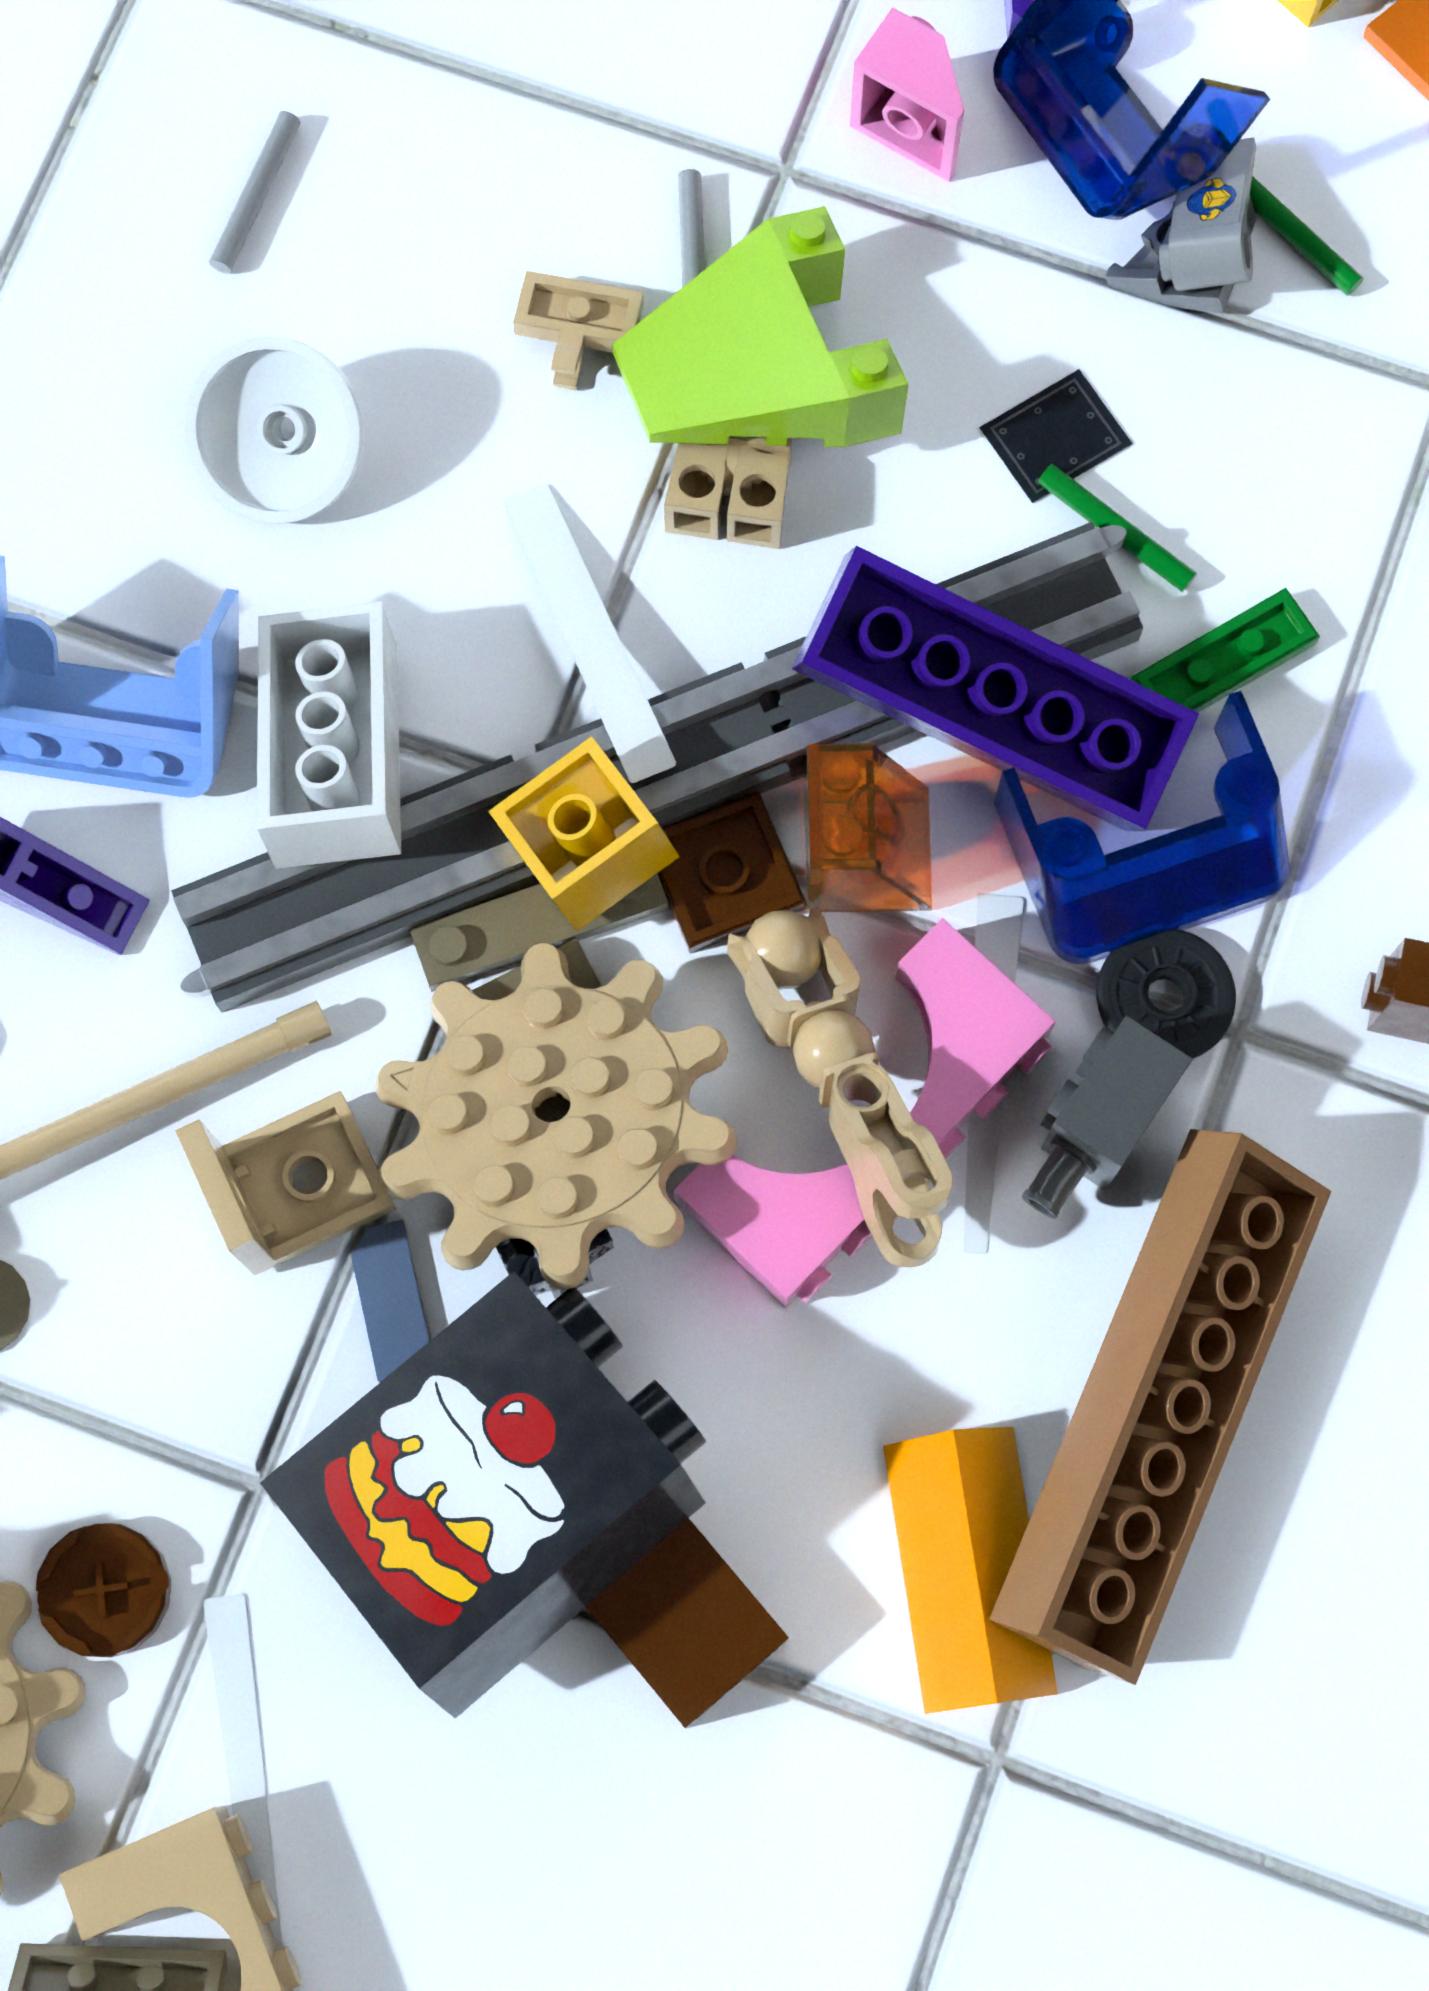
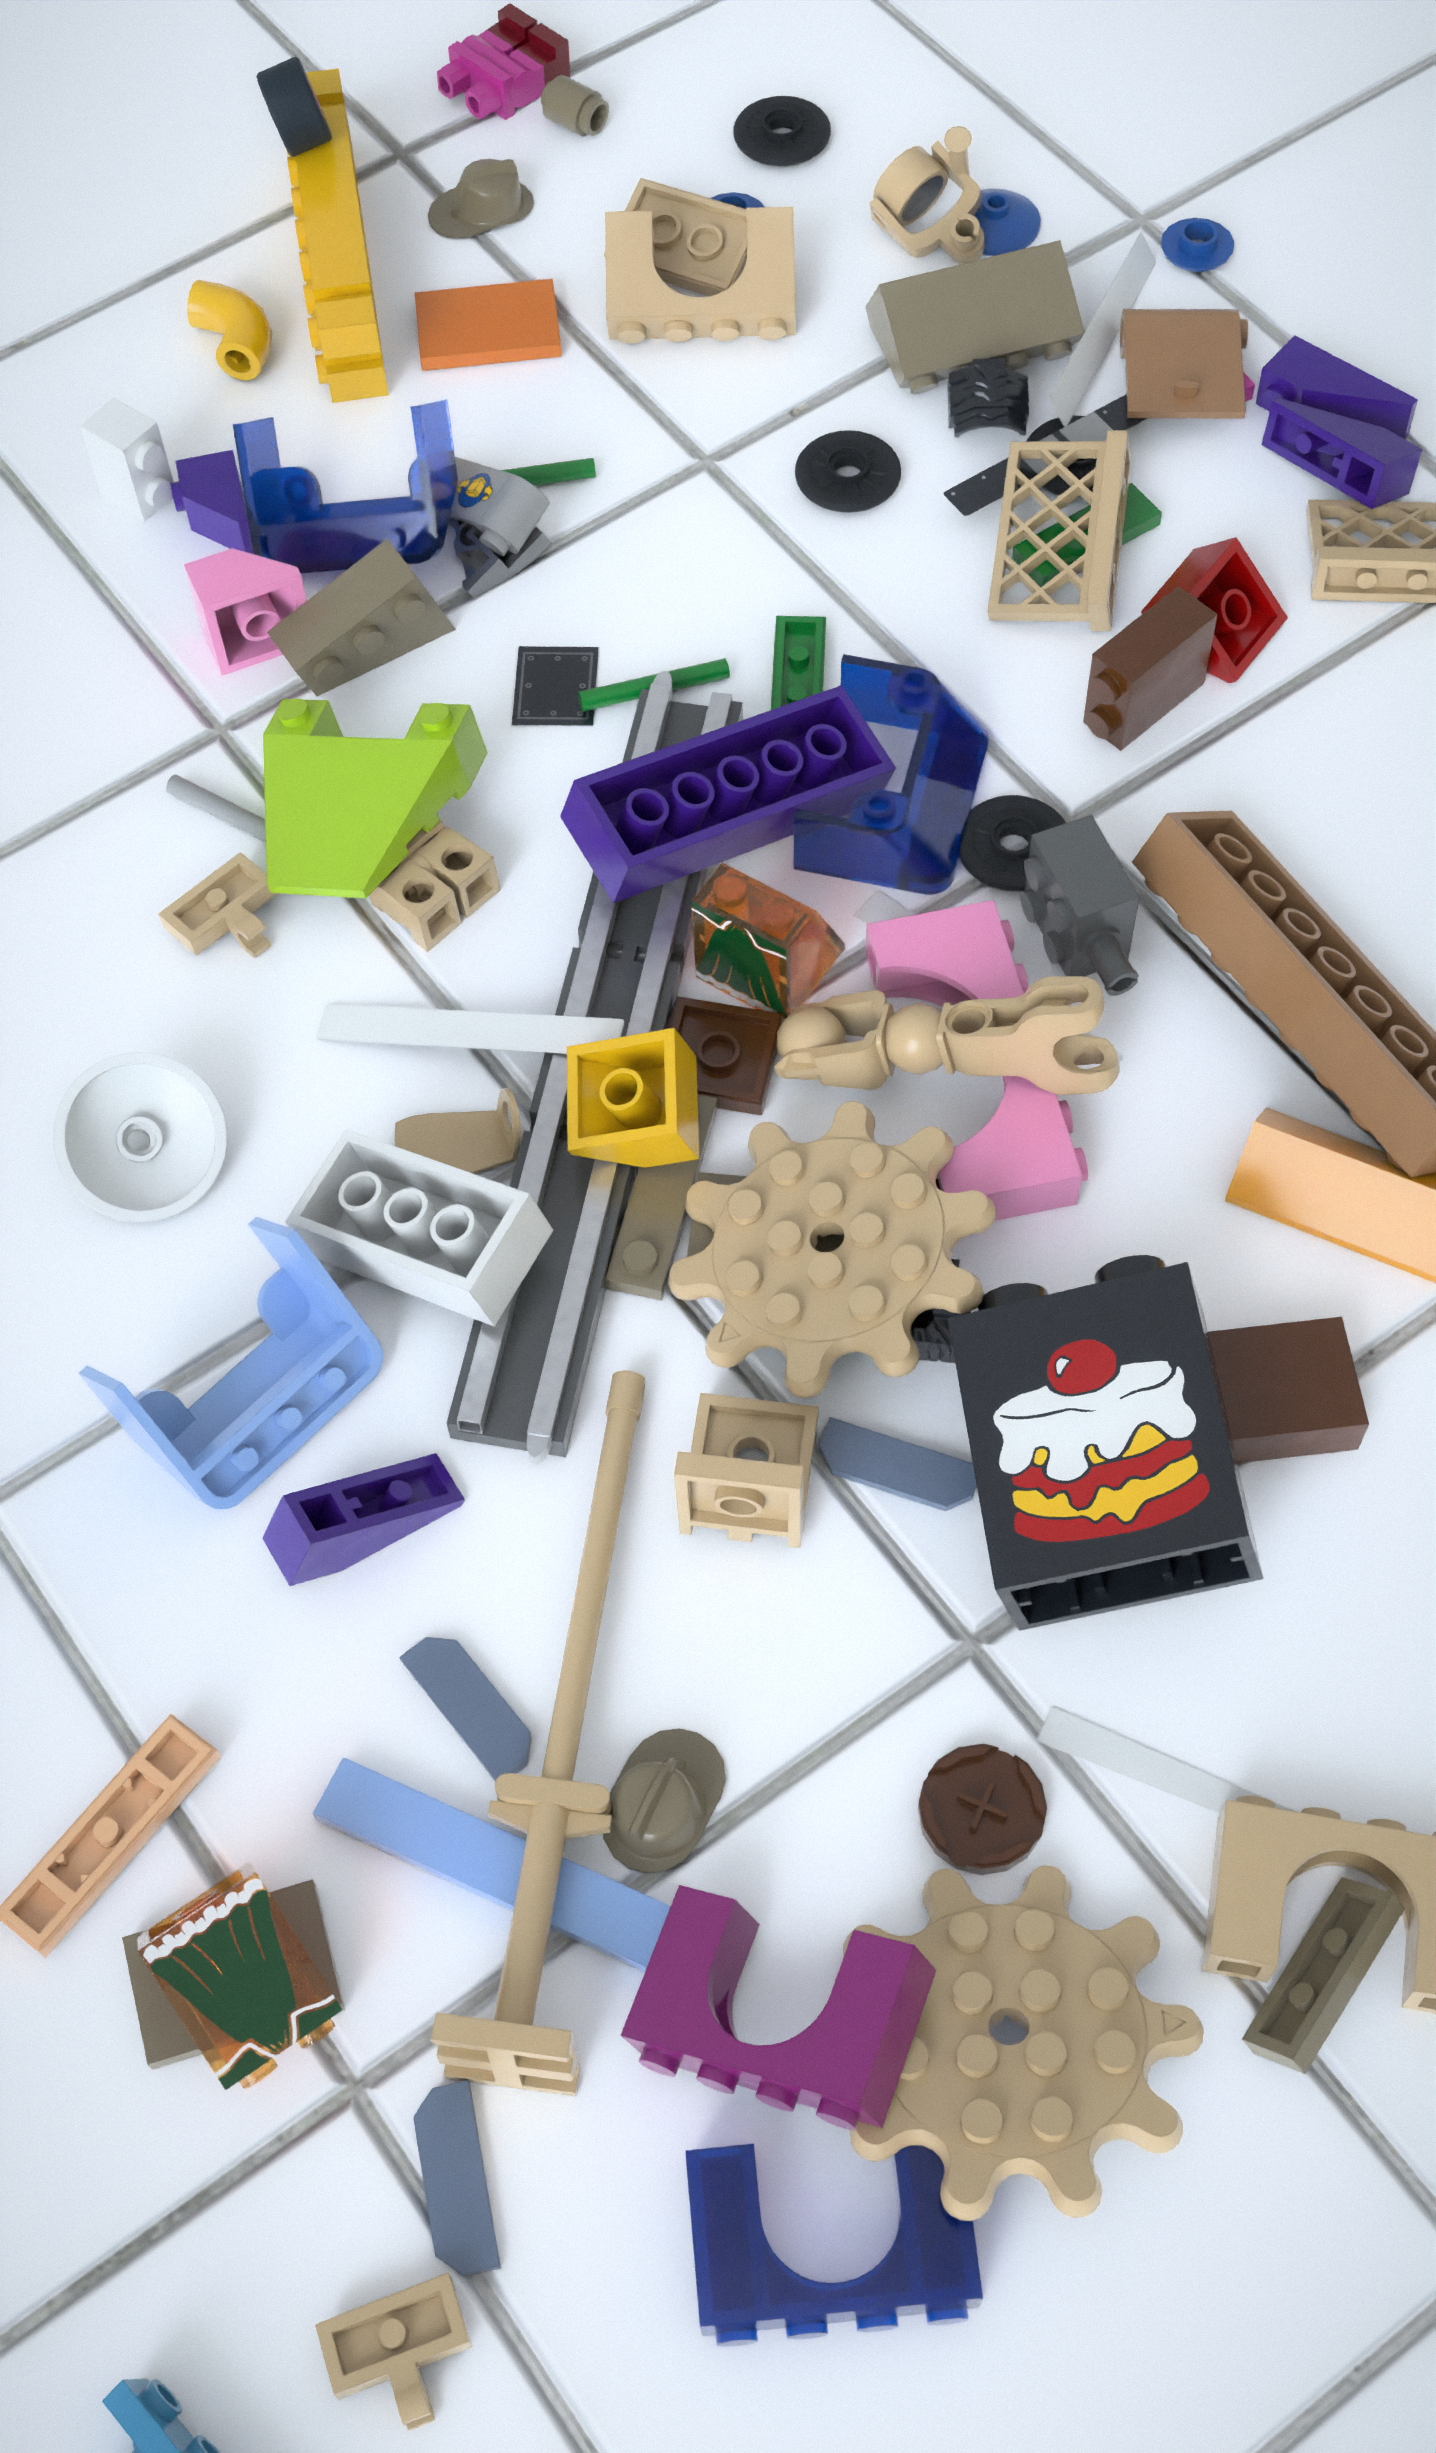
camera: 55 degrees left, 15 degrees down
(465, 701) = (465, 1139): none -> tan piece
(983, 208) = (360, 621): none -> dark tan wedge

